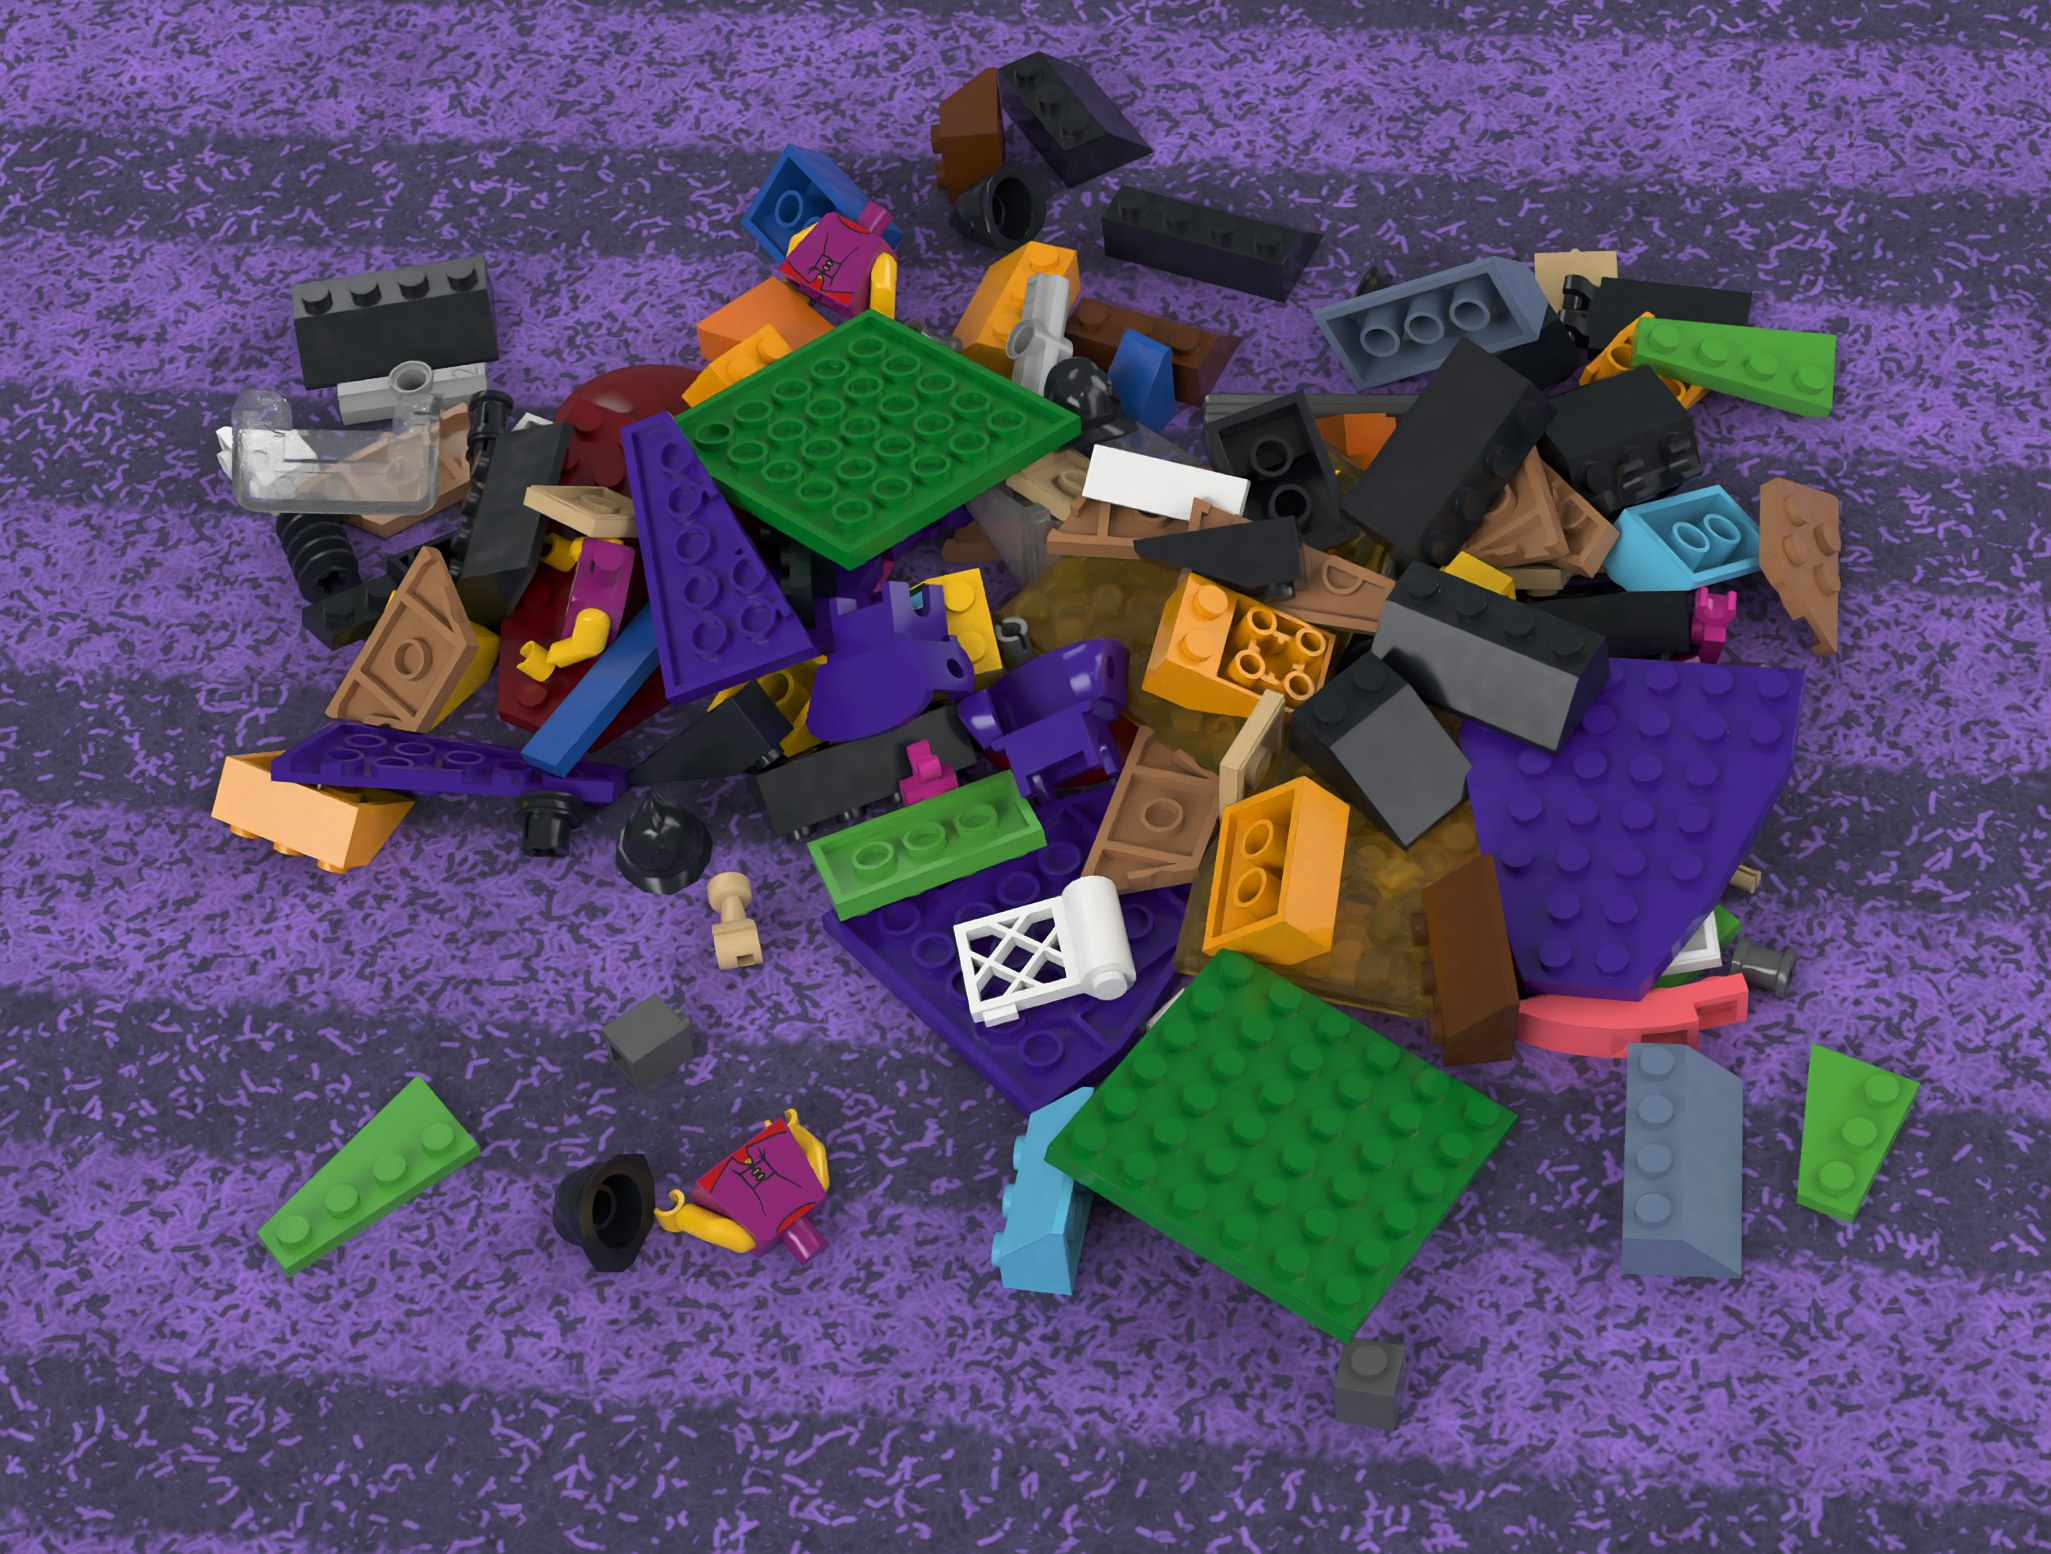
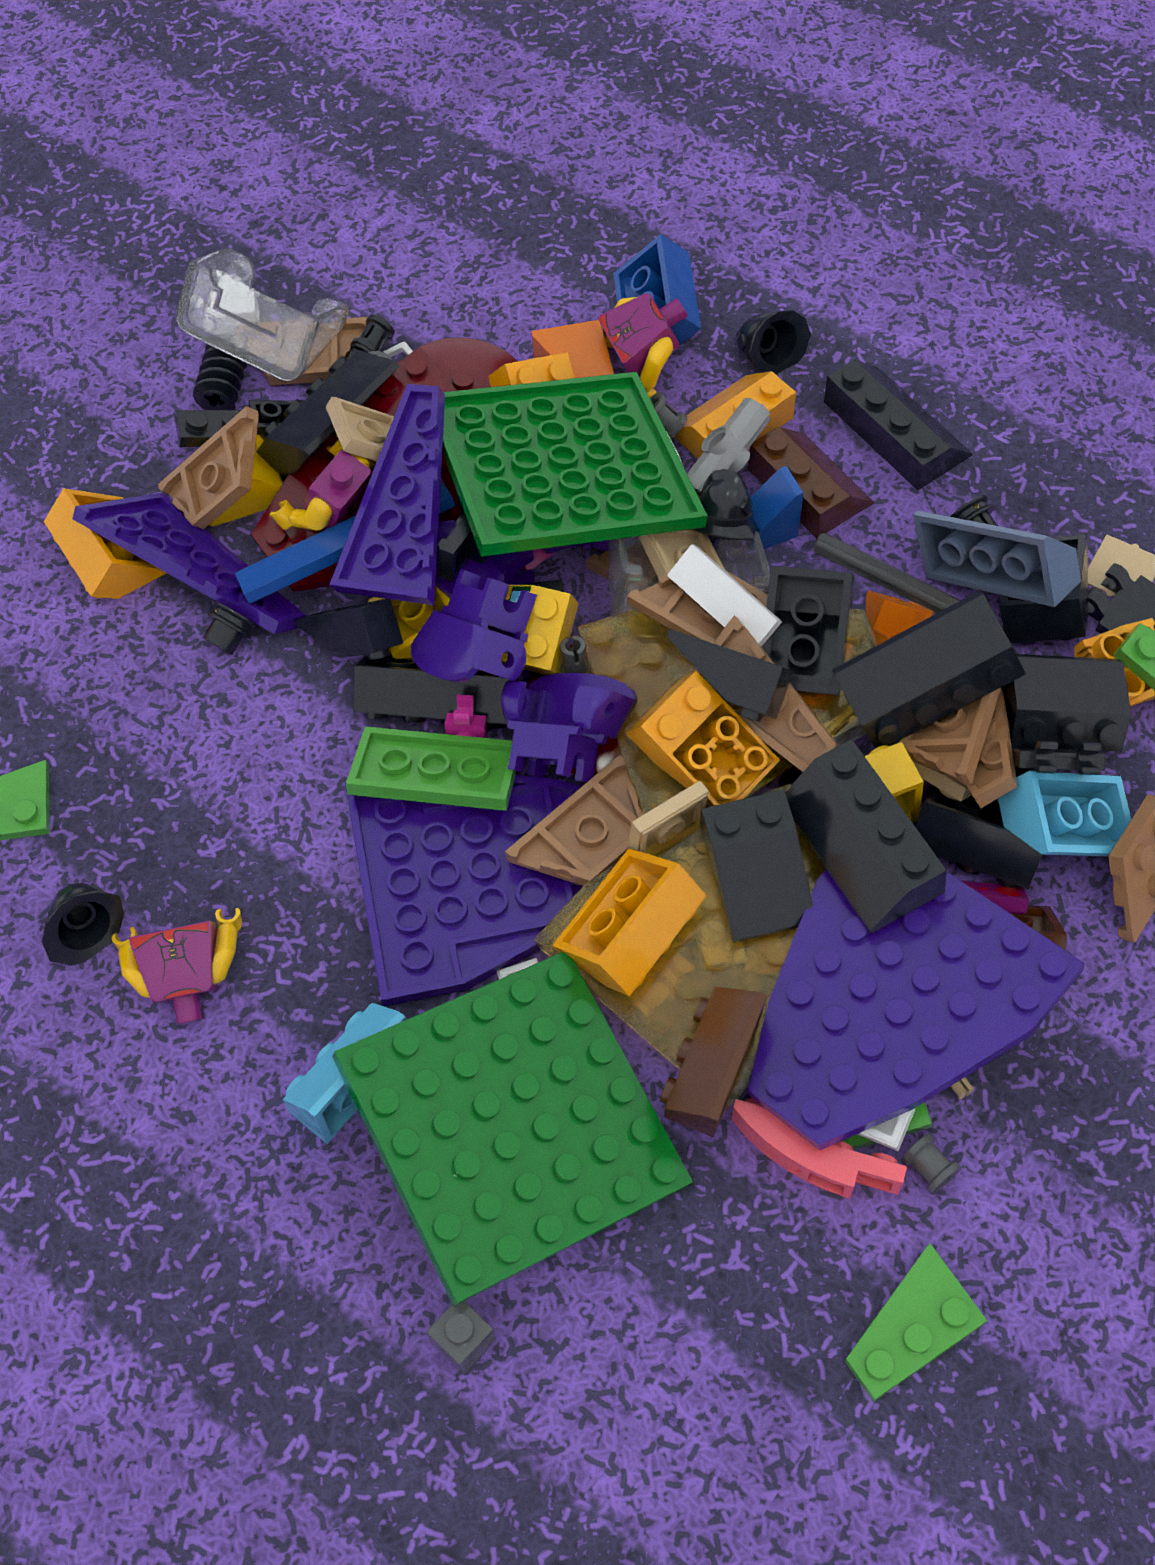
camera: 25 degrees right, 10 degrees up
(378, 397) = (346, 289): light grey piece -> none
(384, 318) = (365, 245): black slope -> none
(649, 1041) = (187, 813): dark grey brick -> none
(663, 847) = (289, 679): black piece -> none
(736, 935) = (284, 769): tan leg -> none
(969, 134) = (783, 278): reddish brown slope -> none
(1068, 118) = (859, 295): black slope -> none
(1090, 941) = (488, 897): white piece -> none
(1681, 1164) = (778, 1289): sand blue slope -> none
(1709, 623) = (1052, 877): dark pink plate -> none

